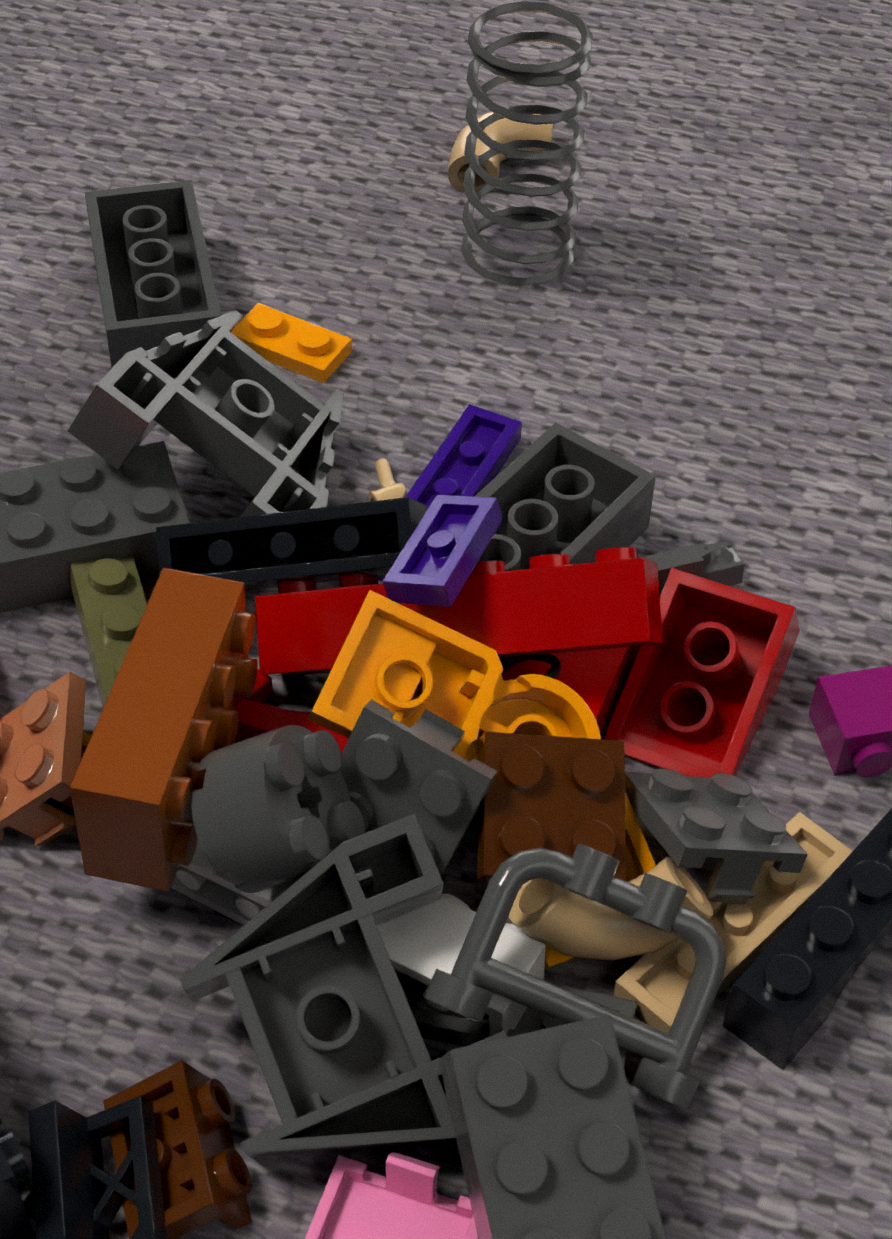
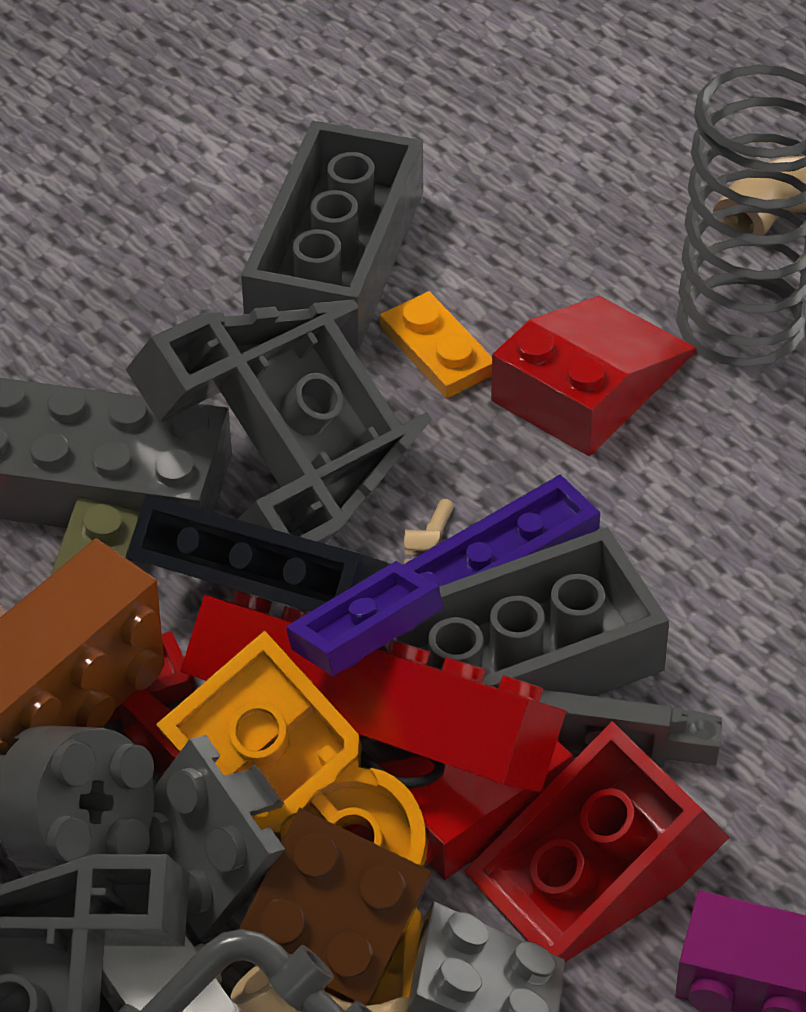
camera: 30 degrees right, 0 degrees up
(428, 325) = (584, 370): none -> red slope

